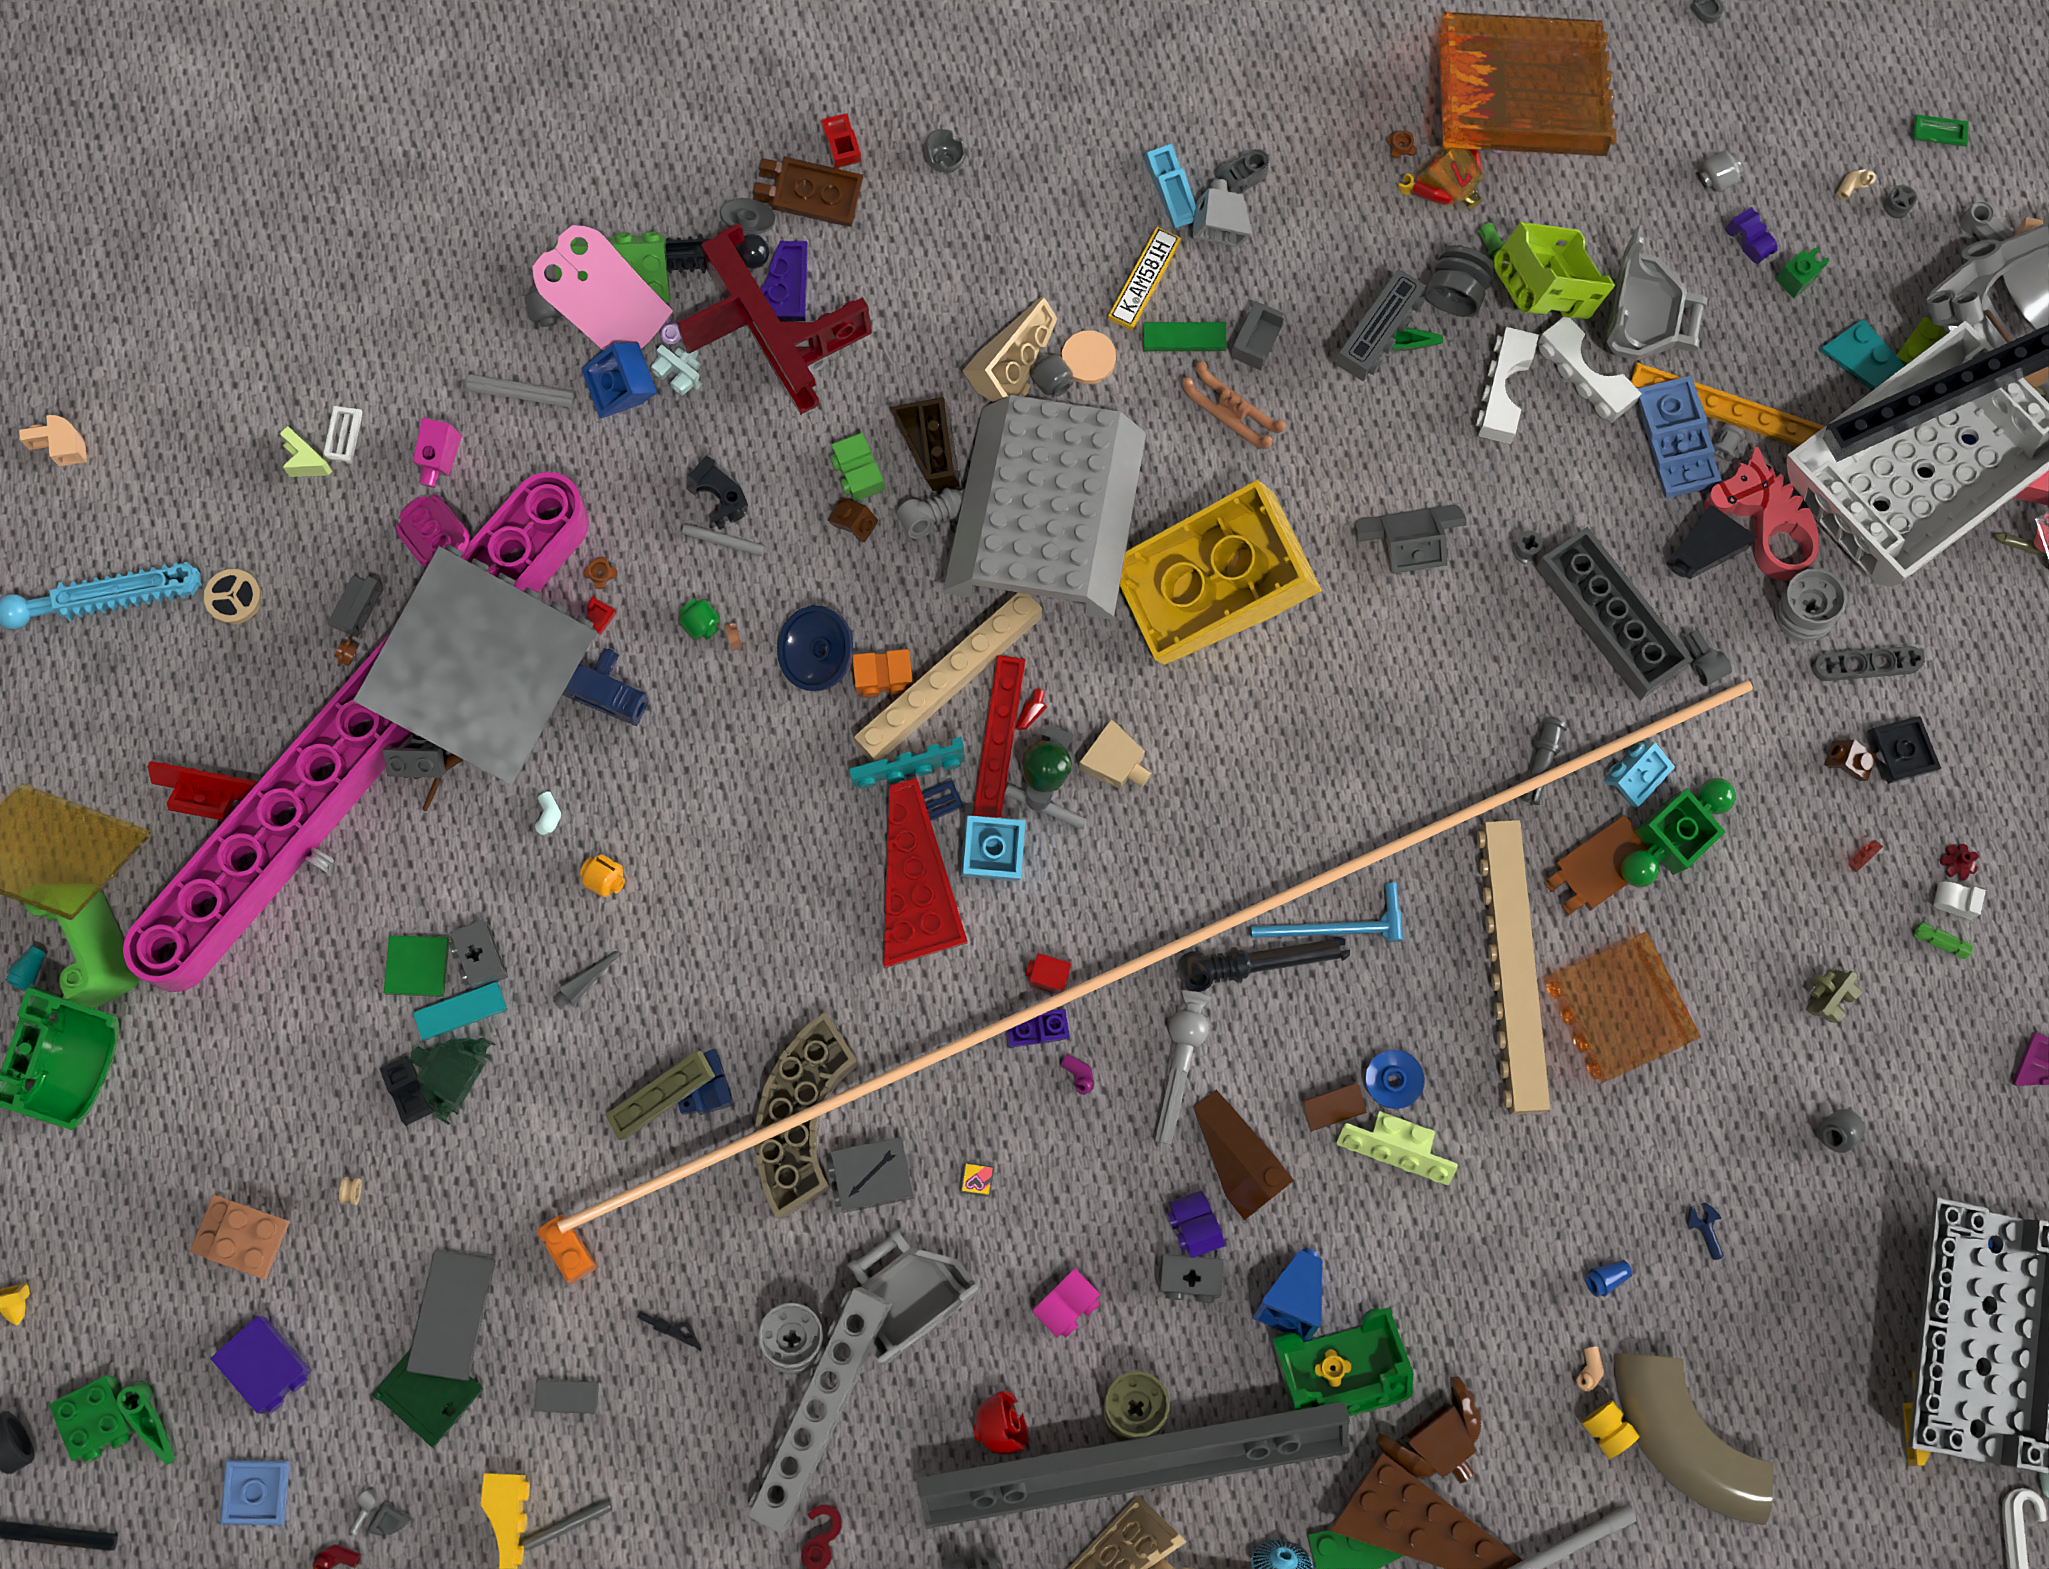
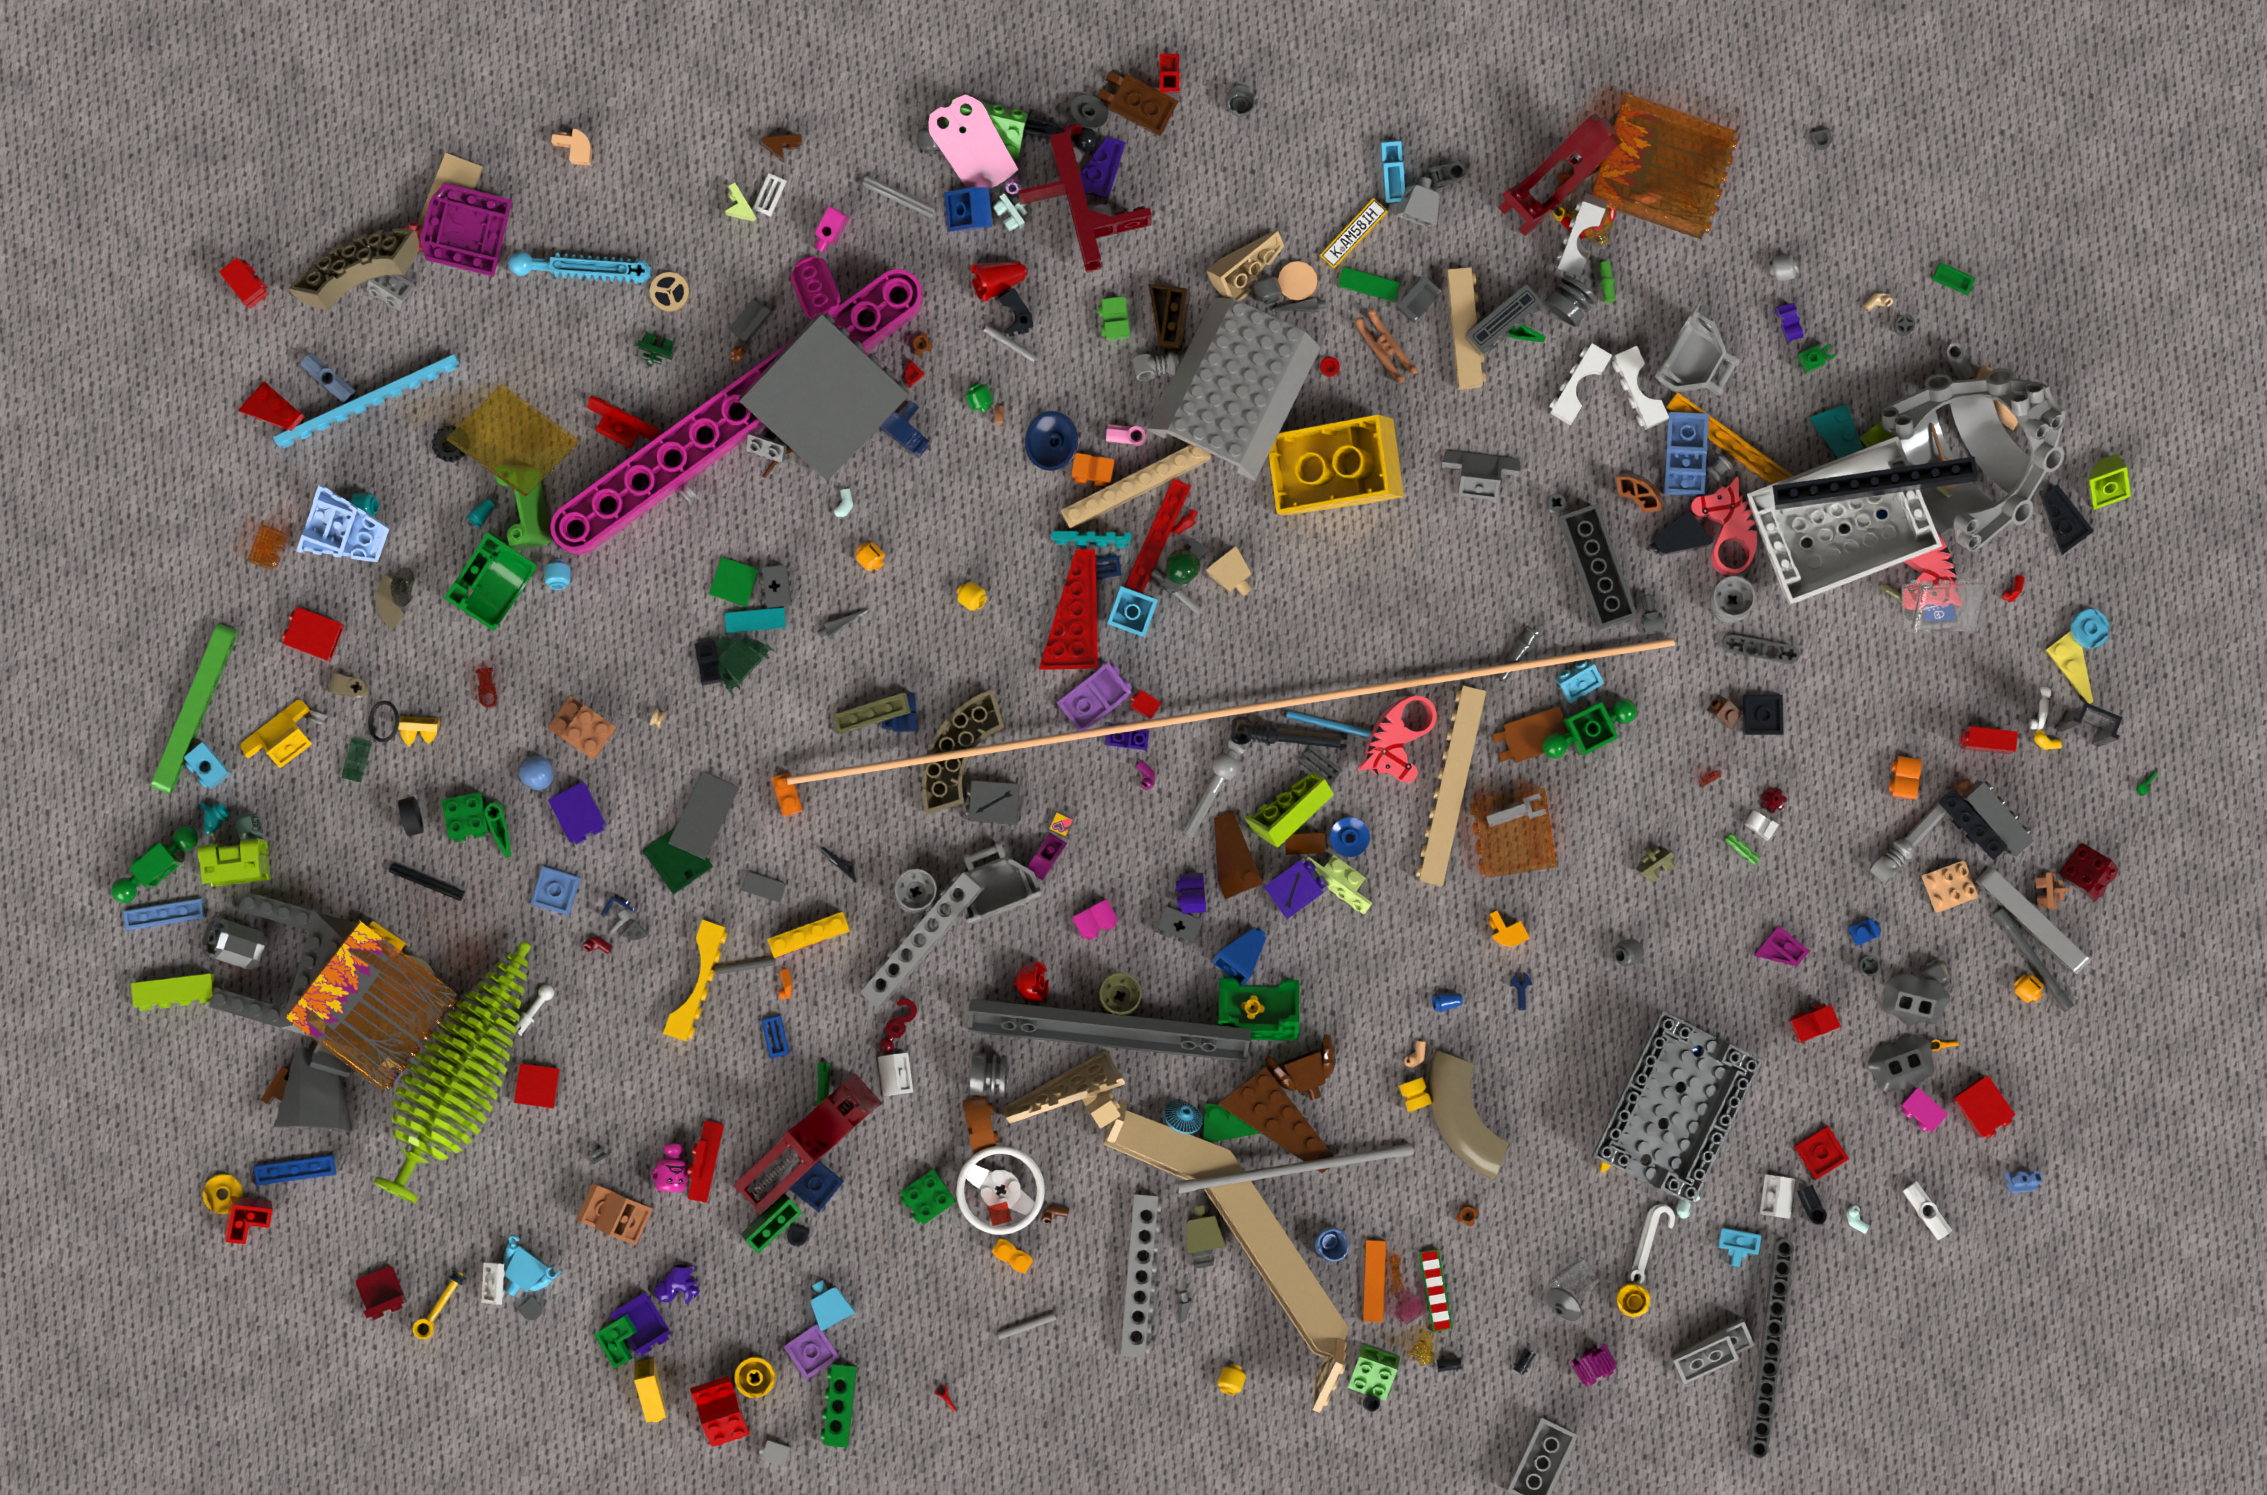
camera: 15 degrees right, 10 degrees up
(86, 1216) = (486, 686): none -> clear red connector
(156, 1025) = (557, 574): none -> medium azure head
(187, 1322) = (536, 772): none -> medium blue hair
(217, 674) = (664, 350): none -> dark green hips
(335, 364) = (776, 143): none -> reddish brown slope
(358, 1480) = (621, 901): none -> dark blue bracket
(637, 1533) = (787, 984): none -> orange arm
(650, 1450) = (808, 935): none -> yellow brick
(677, 456) = (996, 277): none -> red cone
(761, 890) = (971, 596): none -> yellow head
(853, 518) = (1102, 354): reddish brown bracket -> none
(912, 615) = (1123, 434): none -> bright pink piece
(970, 1231) = (1046, 856): none -> magenta slope
(976, 981) = (1095, 697): none -> medium lavender bracket
(1111, 384) = (1309, 305): none -> dark grey piece
(1165, 454) = (1329, 366): none -> red tile
(1300, 1064) = (1290, 810): none -> lime wedge
(1323, 342) = (1463, 319): none -> tan brick
(1325, 980) = (1325, 759): none -> dark grey tile
(1344, 1172) = (1296, 887): none -> dark purple brick
(1405, 924) = (1385, 745): none -> coral animal
(1417, 79) = (1584, 150): none -> dark red piece
(1452, 156) = (1589, 214): none -> arch
(1551, 275) = (1646, 315): lime piece -> none
(1617, 974) = (1515, 811): none -> light grey plate
(1636, 497) = (1640, 490): none -> dark orange brick
(1660, 1157) = (1507, 936): none -> light orange brick

